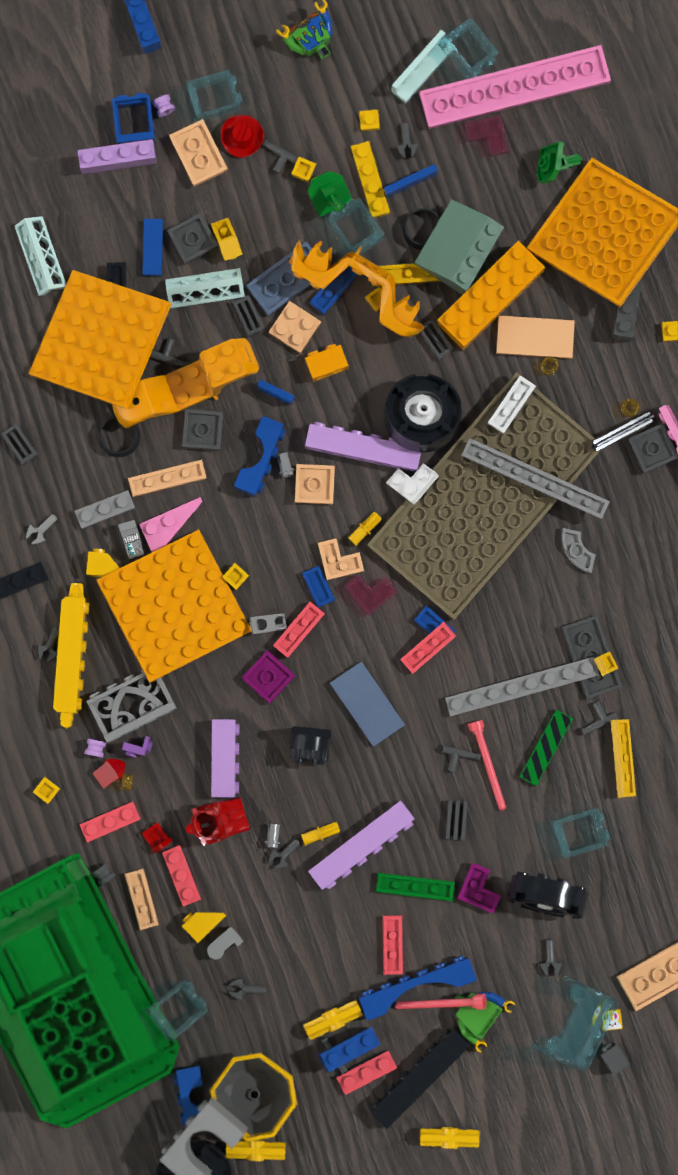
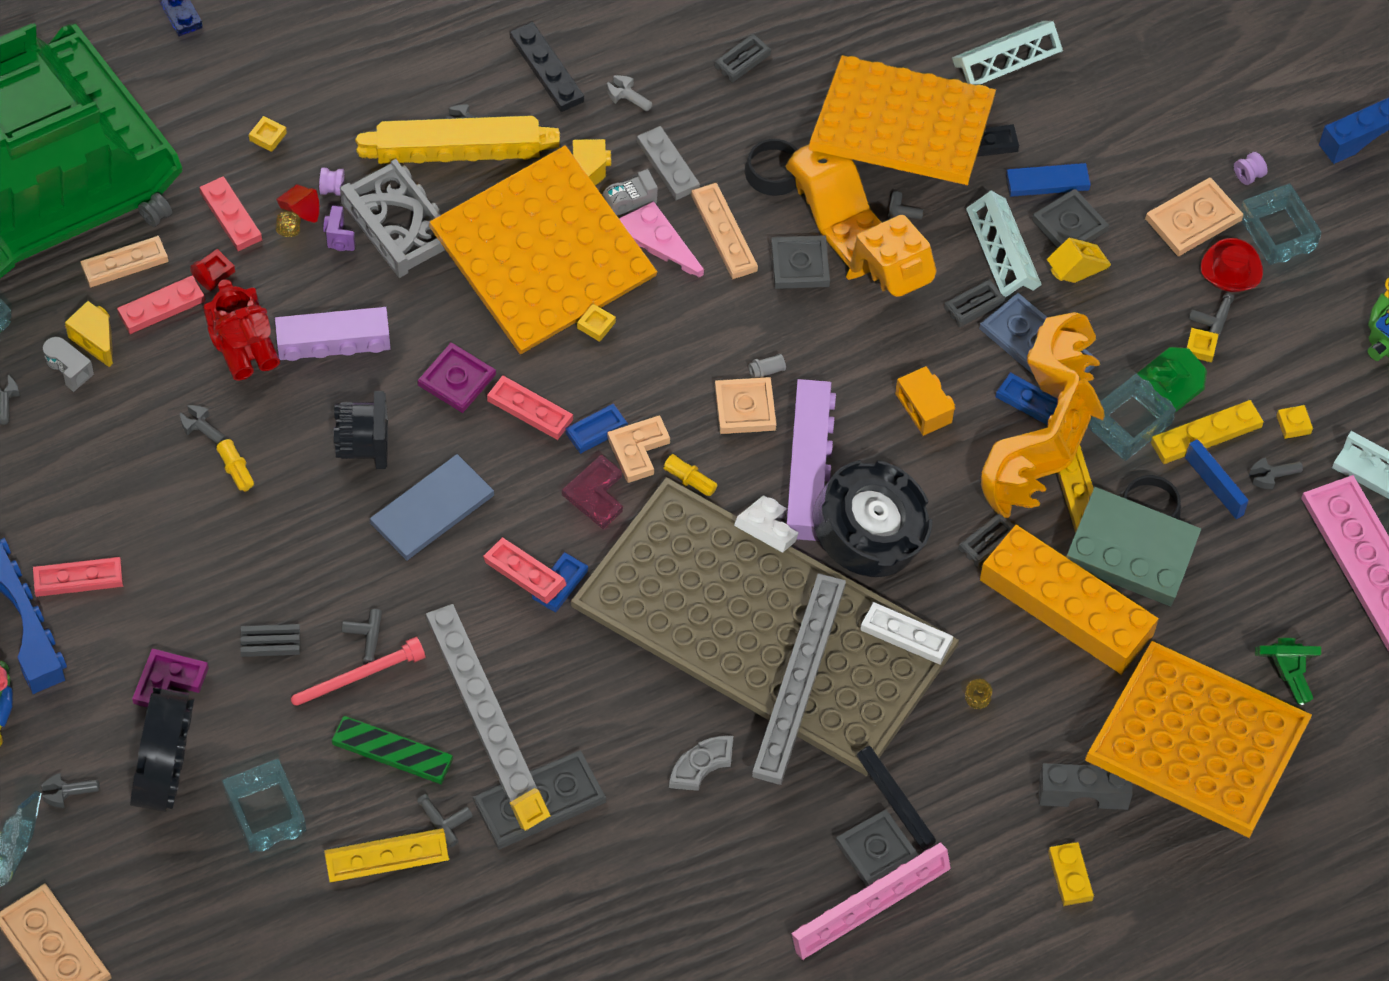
camera: 80 degrees right, 25 degrees down
(117, 156) = (1165, 121): lavender brick -> none
(137, 100) = (1197, 120): blue window -> none
(251, 479) = (804, 341): blue arch -> none
(267, 624) = (532, 365): light grey leg -> none
(272, 836) = (226, 406): light grey pin -> none
(276, 392) = (870, 342): blue tile -> none
(294, 327) = (969, 360): light nougat plate -> none
(361, 845) = (222, 517): lavender brick -> none
(415, 886) = (166, 597): green tile -> none
(491, 130) = (1318, 577): clear pink plate -> none
(535, 337) = (1018, 671): light nougat tile -> none
(626, 412) = (930, 820): clear yellow bush -> none

